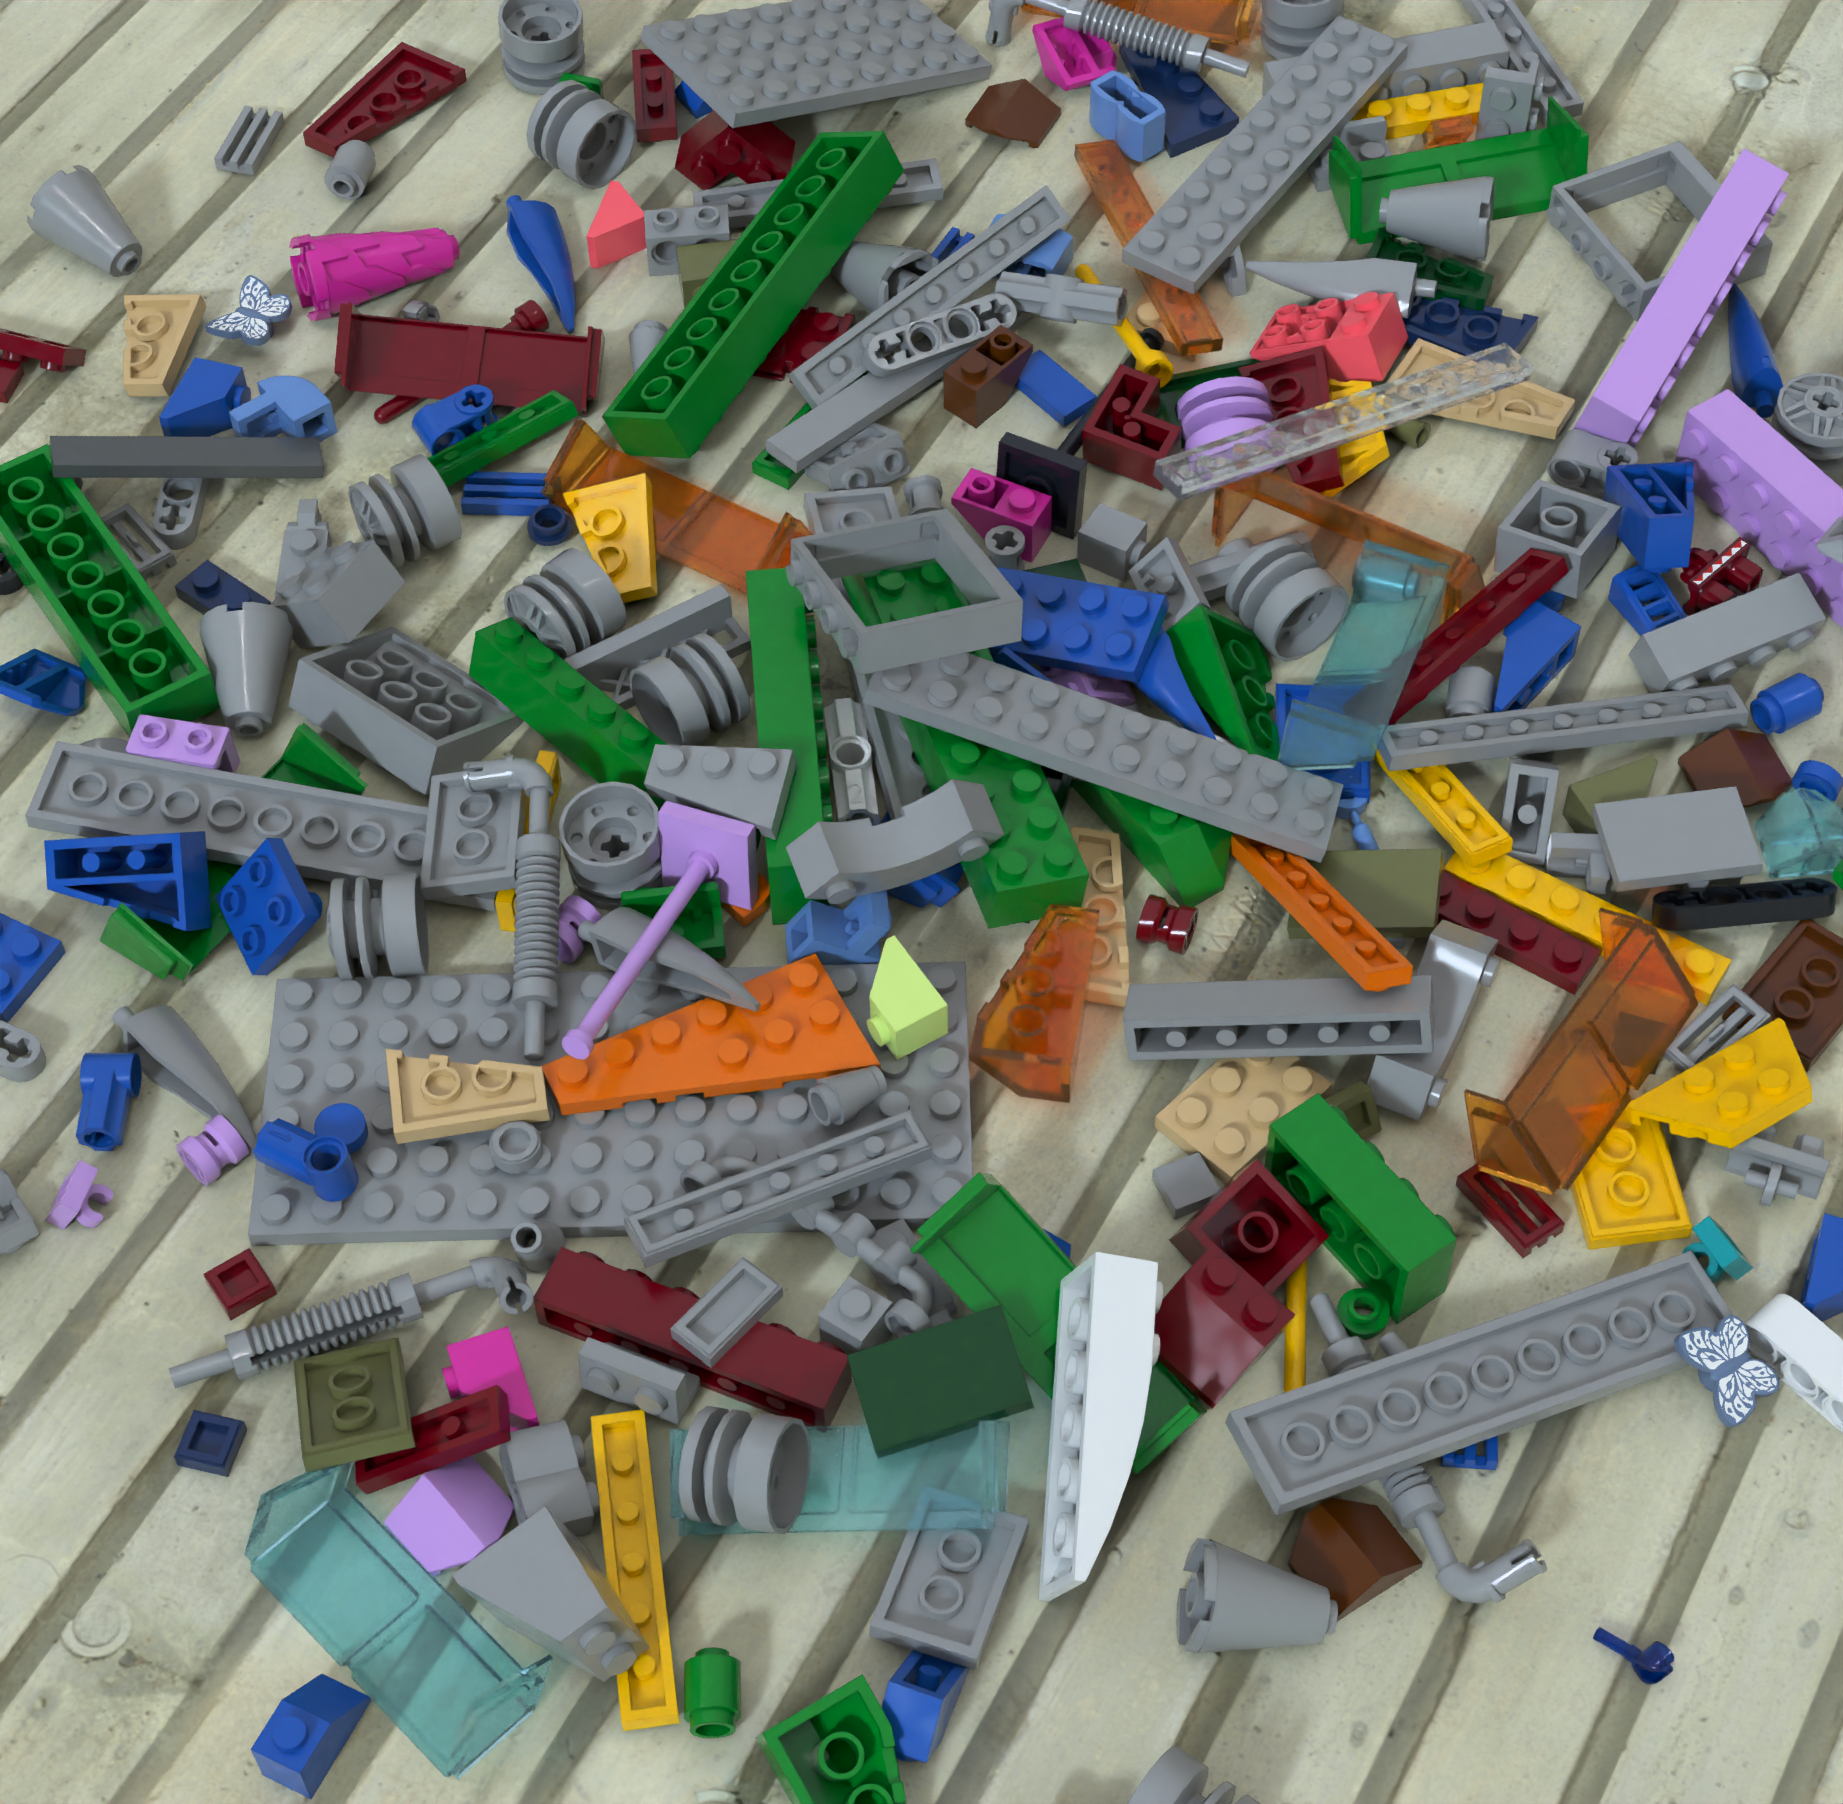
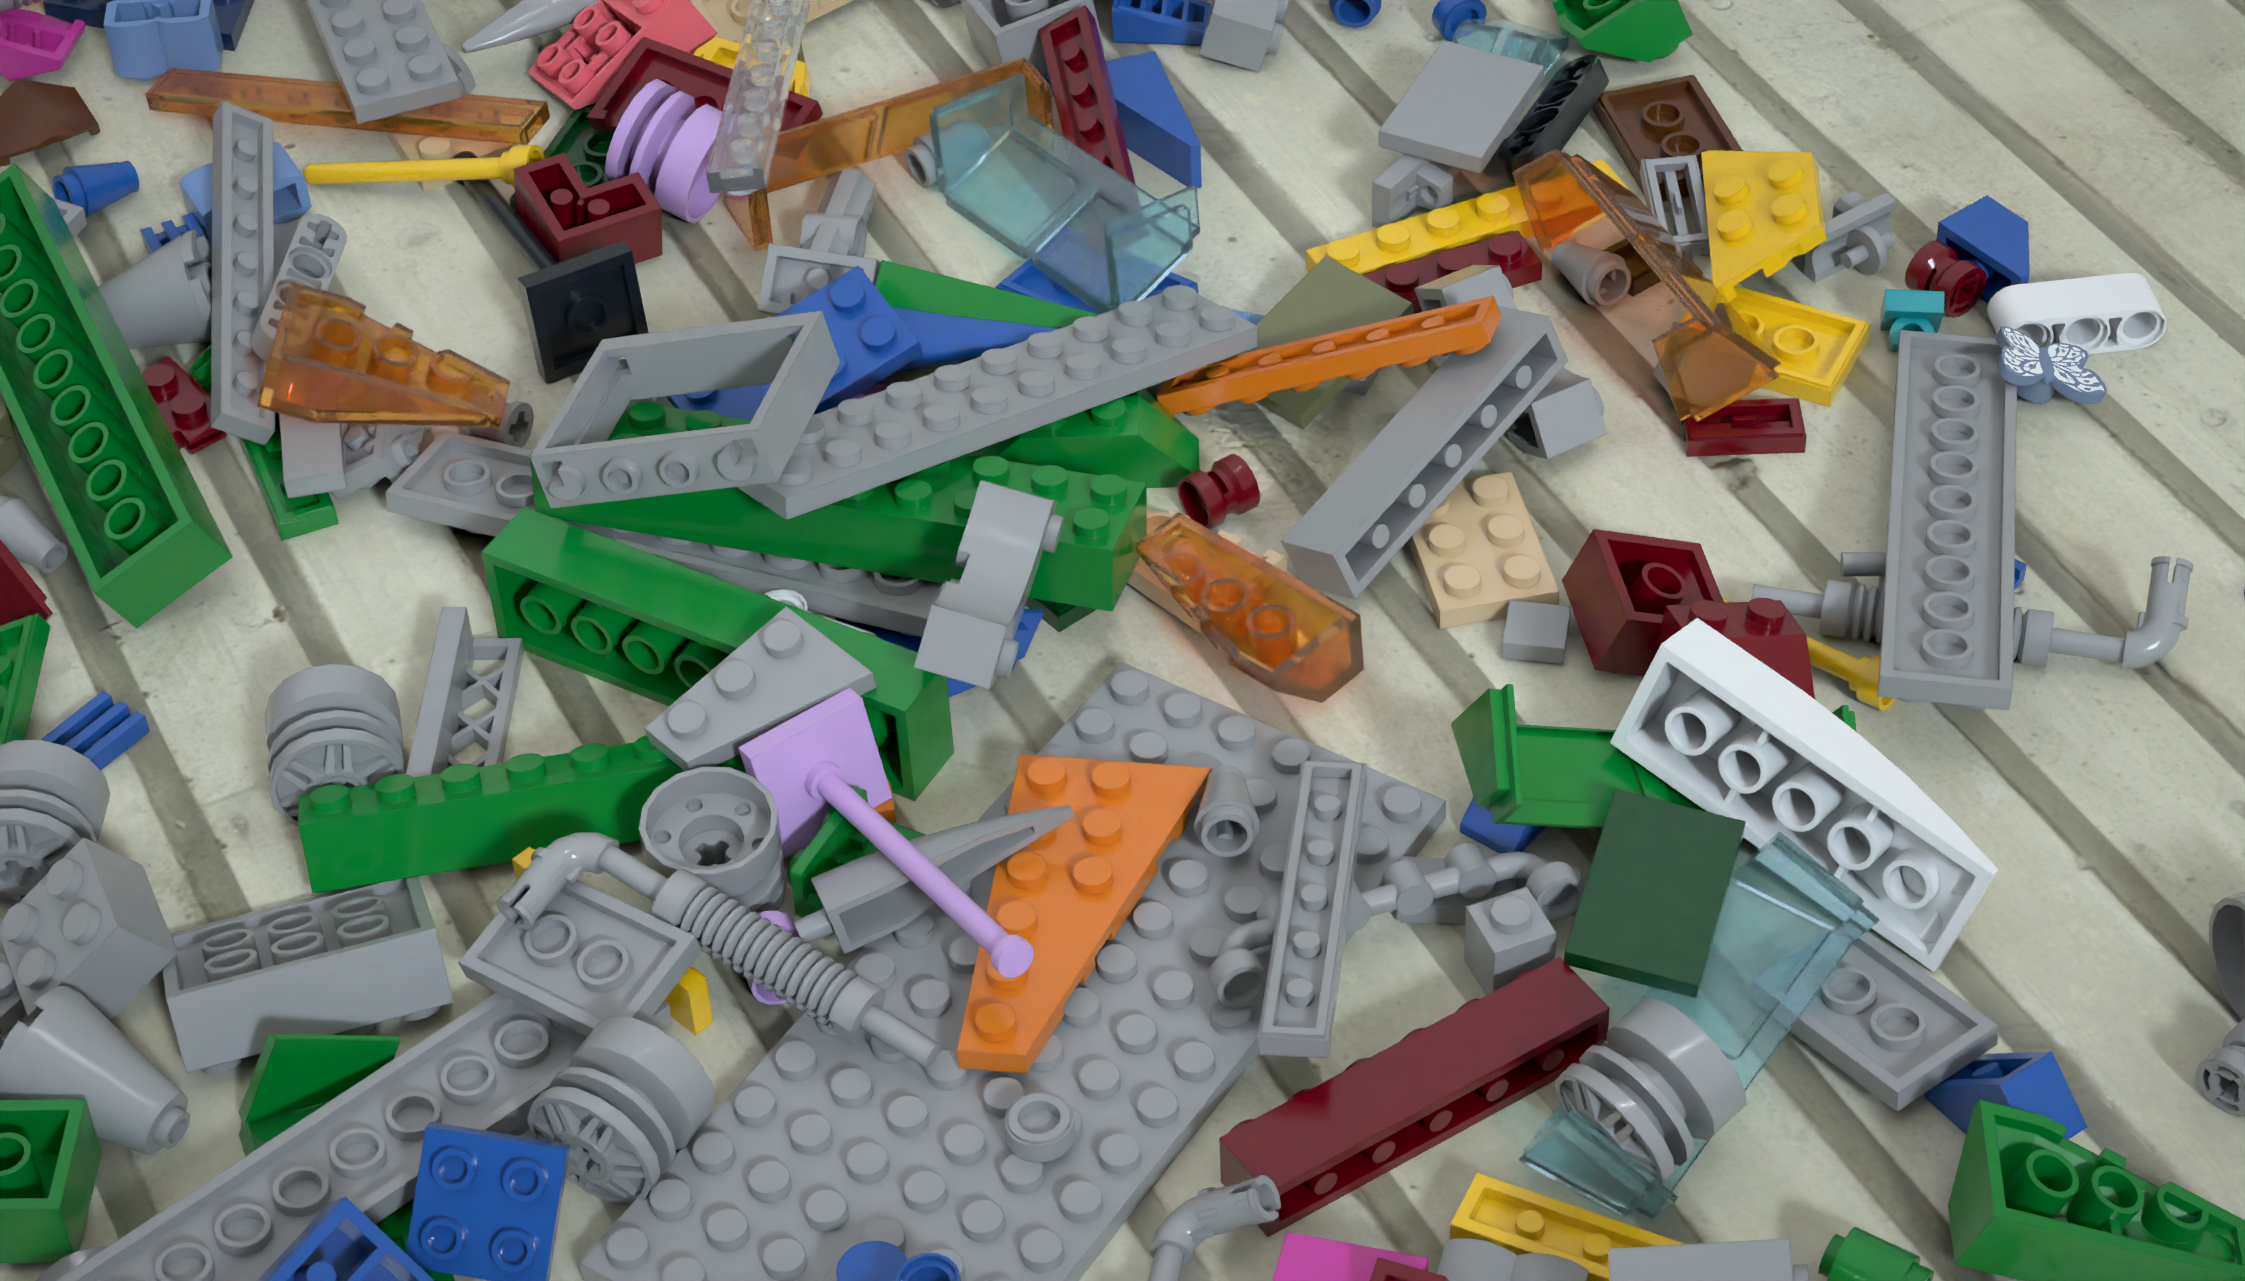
camera: 55 degrees left, 10 degrees down
(184, 743) = (143, 1187): lavender bracket -> none
(456, 1098) = (932, 1145): tan wing -> none
(544, 1250) = (1180, 1168): light grey cone -> none
(549, 525) = (172, 729): dark blue plate -> none
(620, 532) = (236, 661): yellow wing -> none
(636, 1380) = (1437, 1158): light grey bracket -> none
(688, 520) = (289, 618): clear orange piece -> none
(690, 692) = (566, 687): light grey wheel -> none
(726, 1312) = (1429, 1027): light grey tile -> none
(840, 934) = (1009, 723): medium blue brick -> none
(878, 411) = (350, 369): none -> clear orange wedge
(904, 1004) = (1147, 710): yellowish green slope -> none
(971, 180) = (95, 185): none -> blue cone
(985, 376) = (381, 278): reddish brown slope -> none
(993, 502) = (559, 355): dark pink slope -> none
(1054, 389) = (441, 265): blue tile -> none
(1064, 298) = (361, 179): light grey piece -> none
(1112, 541) = (700, 298): light grey brick -> none
(1248, 1603) = (2061, 806): light grey cone -> none
(1286, 599) = (920, 213): light grey wheel -> none
(1351, 1552) = (2057, 722): reddish brown slope -> none
(1359, 1107) = (1556, 477): olive tile -> none
(1363, 1325) = (1790, 572): green plate -> none
(1369, 1212) = (1735, 494): green brick -> none
(1452, 812) = (1274, 239): yellow tile -> none
(1470, 692) = (1158, 167): light grey brick -> none
(1529, 807) = (1315, 191): light grey slope -> none
(1562, 727) = (1261, 111): light grey plate -> none
(1618, 784) = (1354, 143): olive slope -> none
(1740, 761) = (1386, 61): reddish brown slope -> none
(1783, 1250) = (1938, 269): none -> dark red wheel

